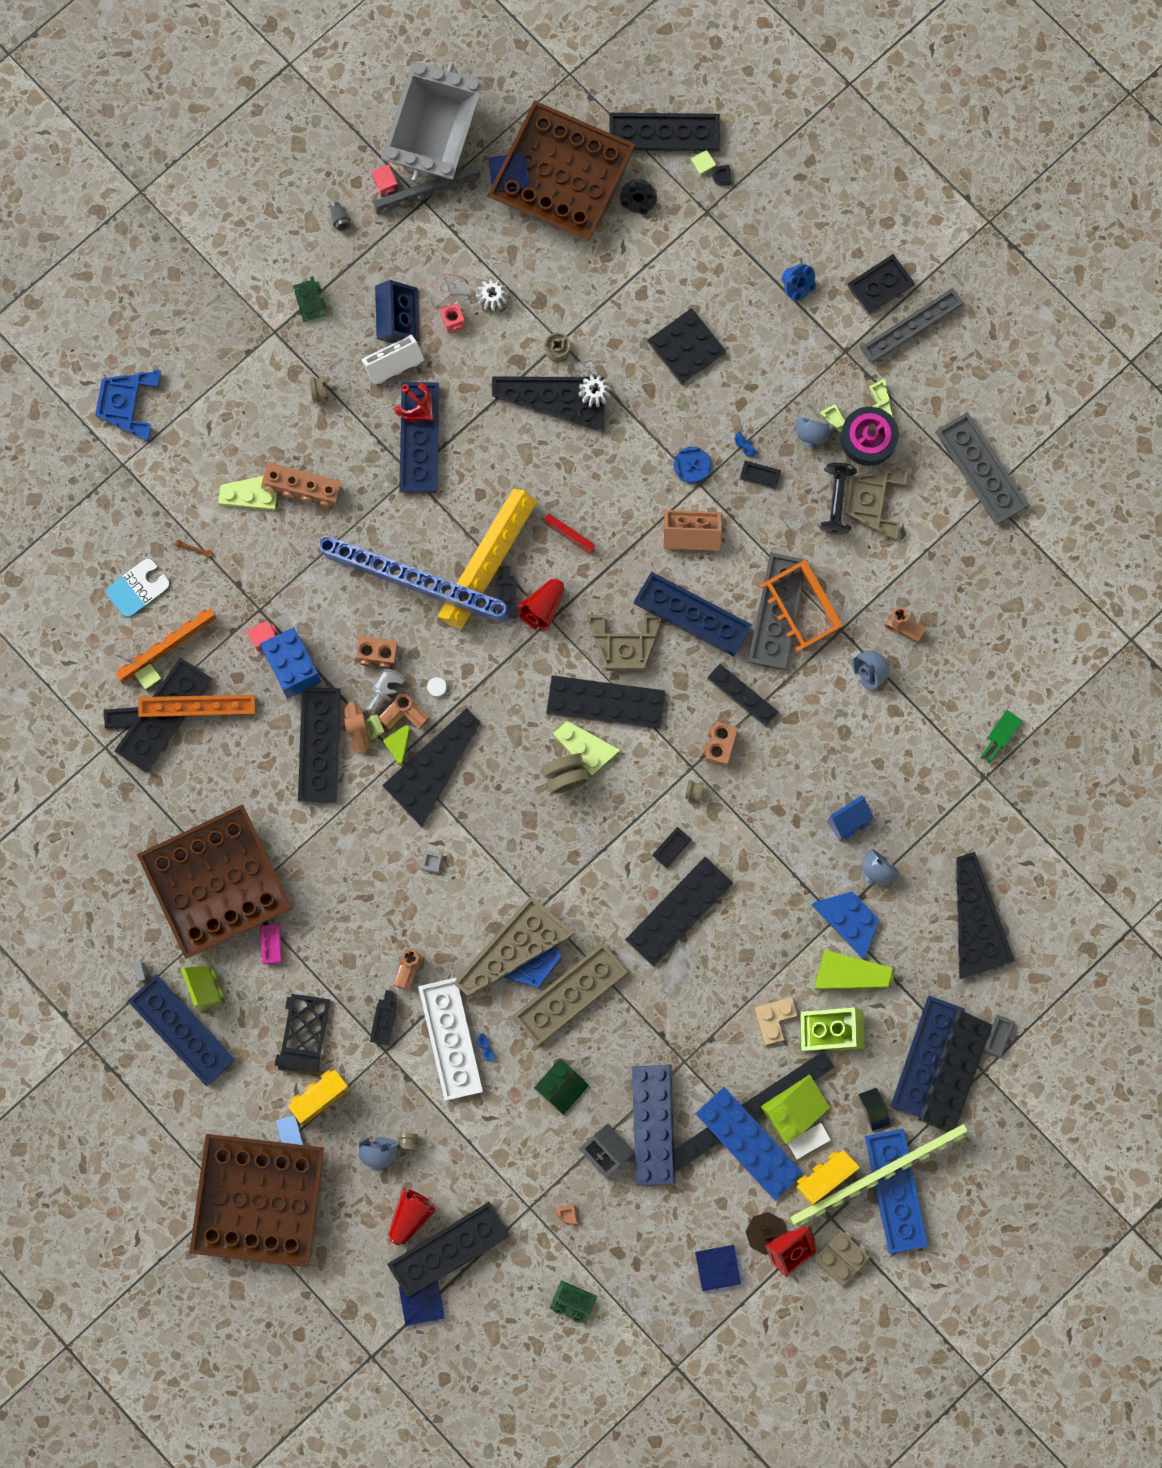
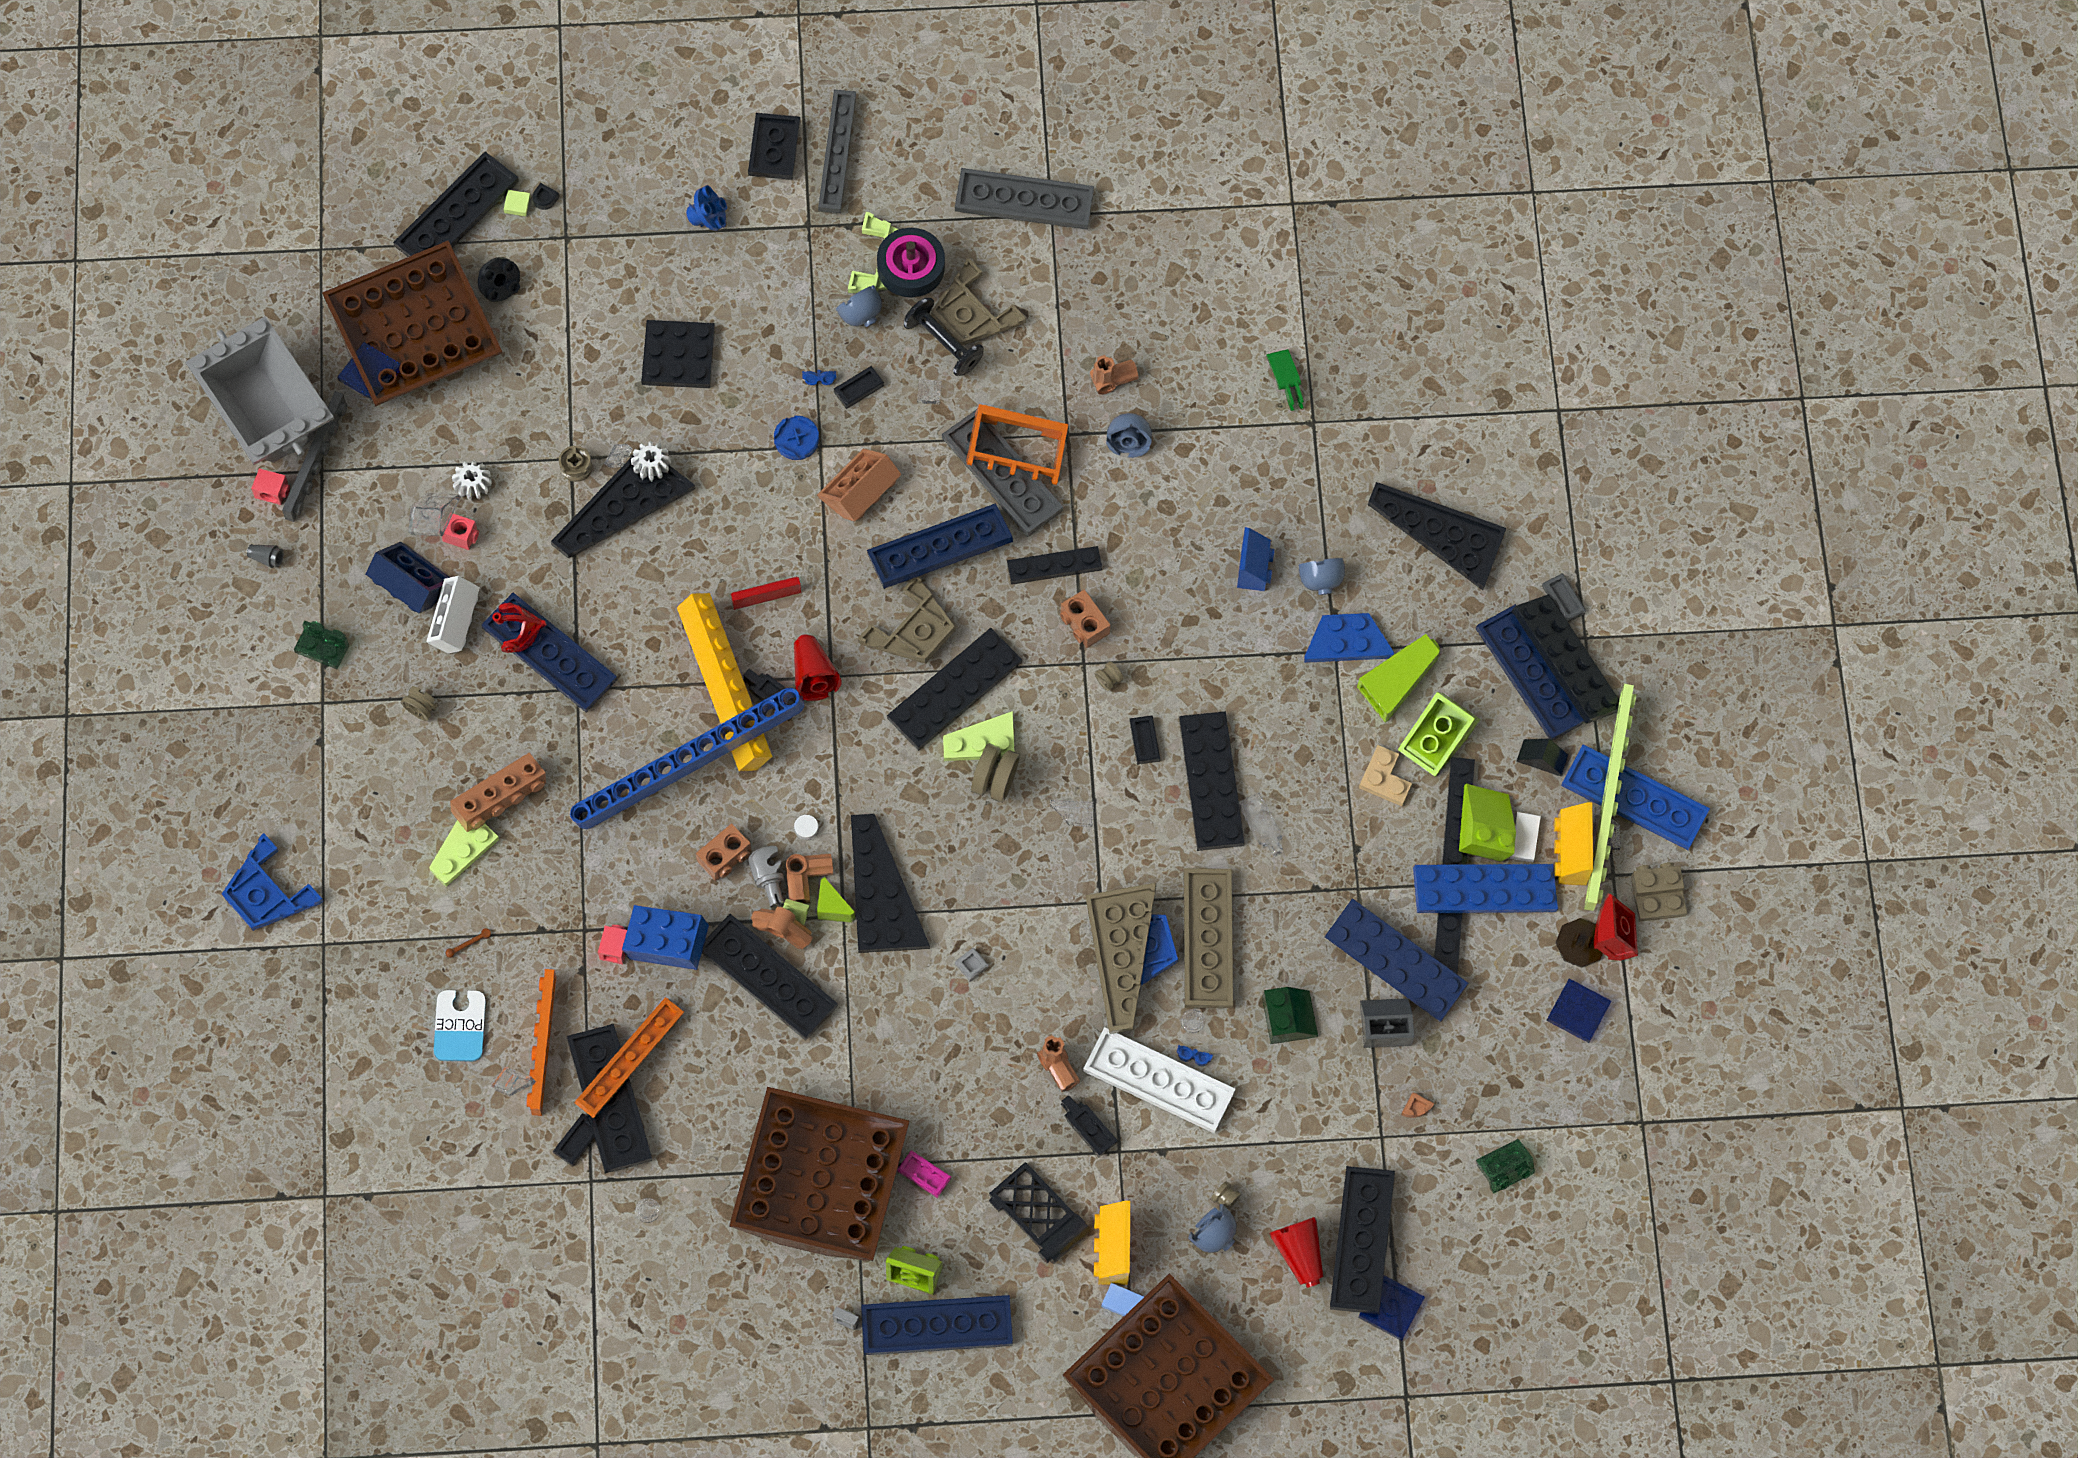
camera: 50 degrees left, 10 degrees down
(148, 676) = (557, 1084): yellowish green tile -> none

